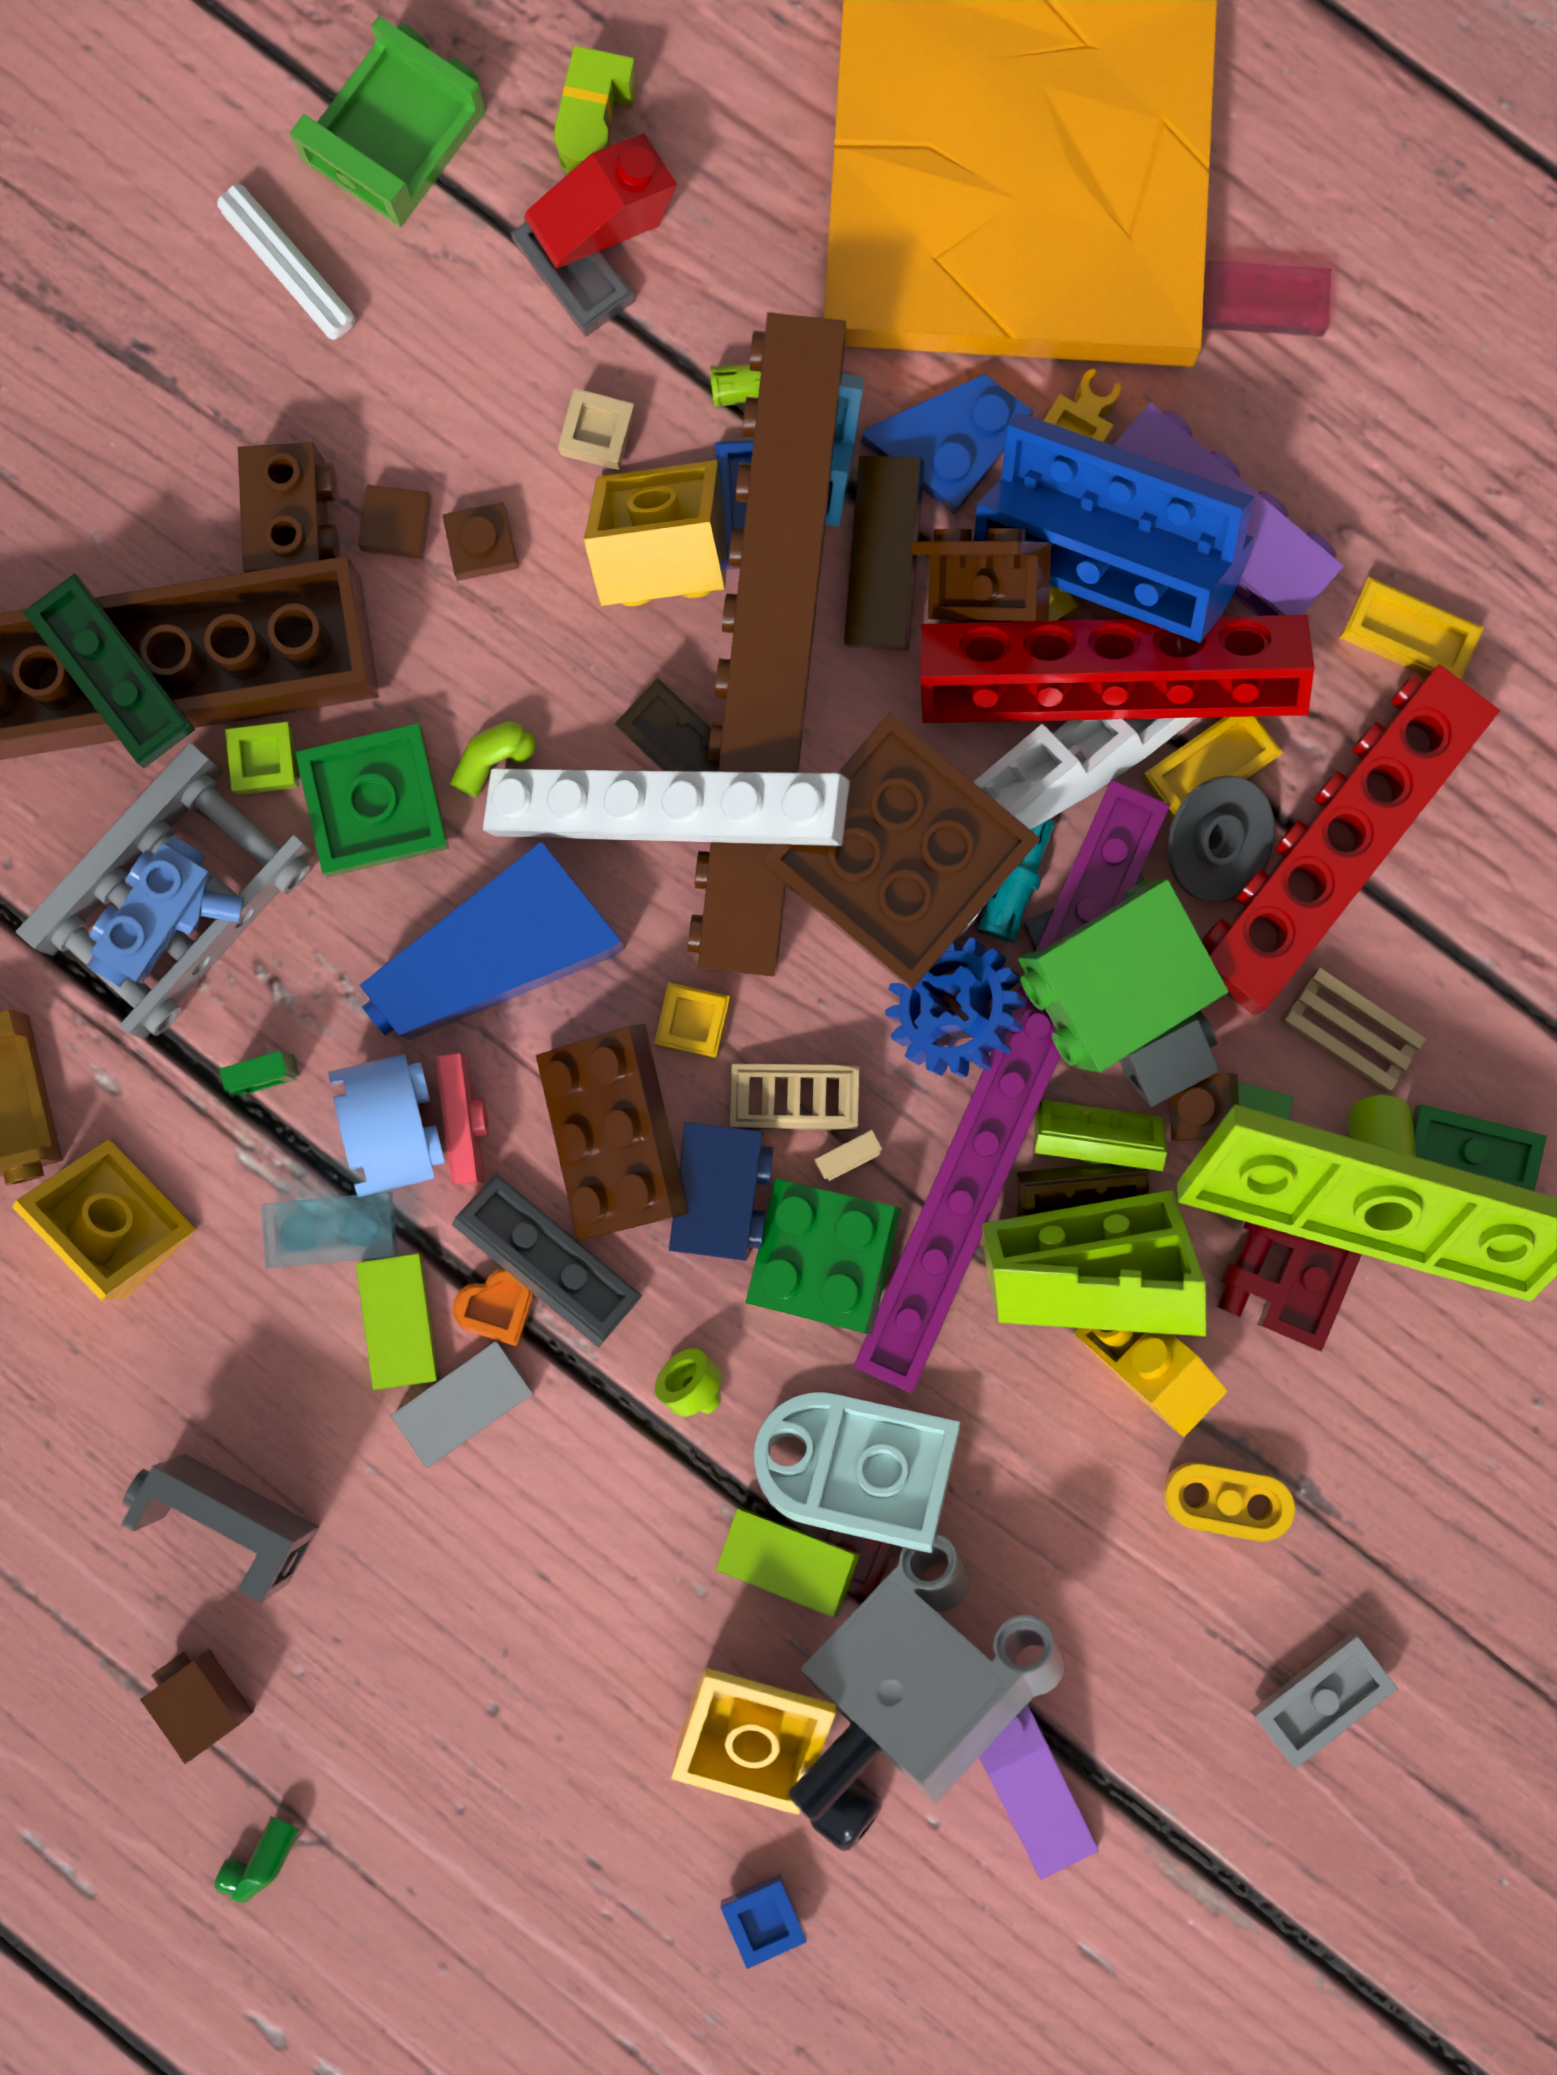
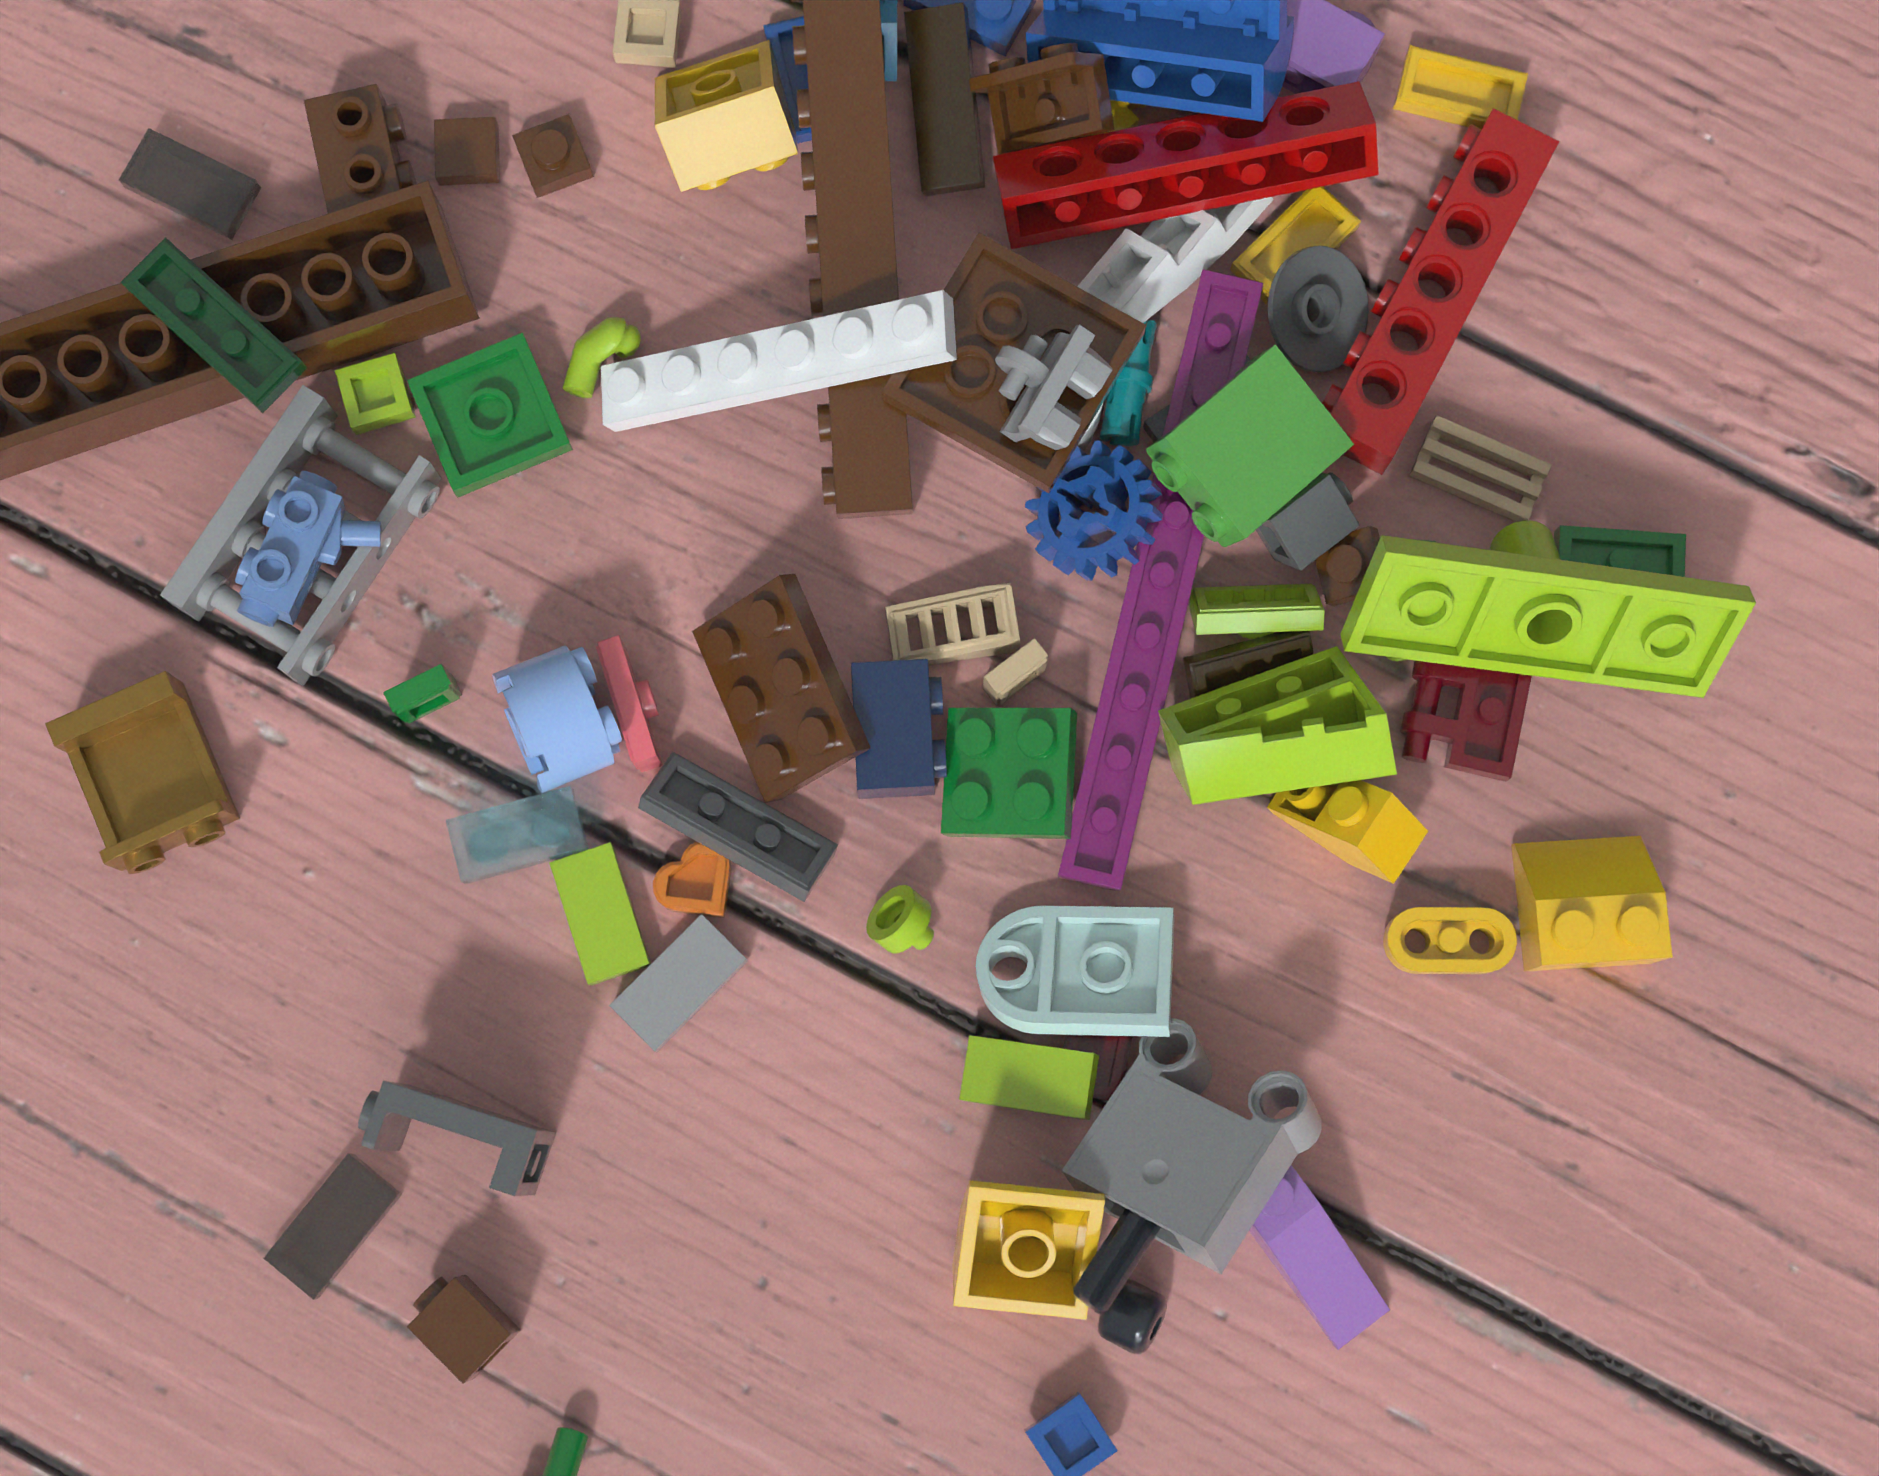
camera: 15 degrees left, 5 degrees down
(87, 1580) = (332, 1226): none -> clear smoke tile
(105, 1221) = (295, 863): yellow slope -> none
(113, 507) = (190, 183): none -> clear smoke tile
(493, 947) = (633, 533): blue slope -> none
(668, 731) = (763, 295): dark brown plate -> none
(692, 1020) = (839, 572): yellow tile -> none
(920, 884) = (1065, 363): none -> light grey hips
(1324, 1700) = (1581, 1117): light grey plate -> none
(1374, 1490) = (1589, 904): none -> yellow slope

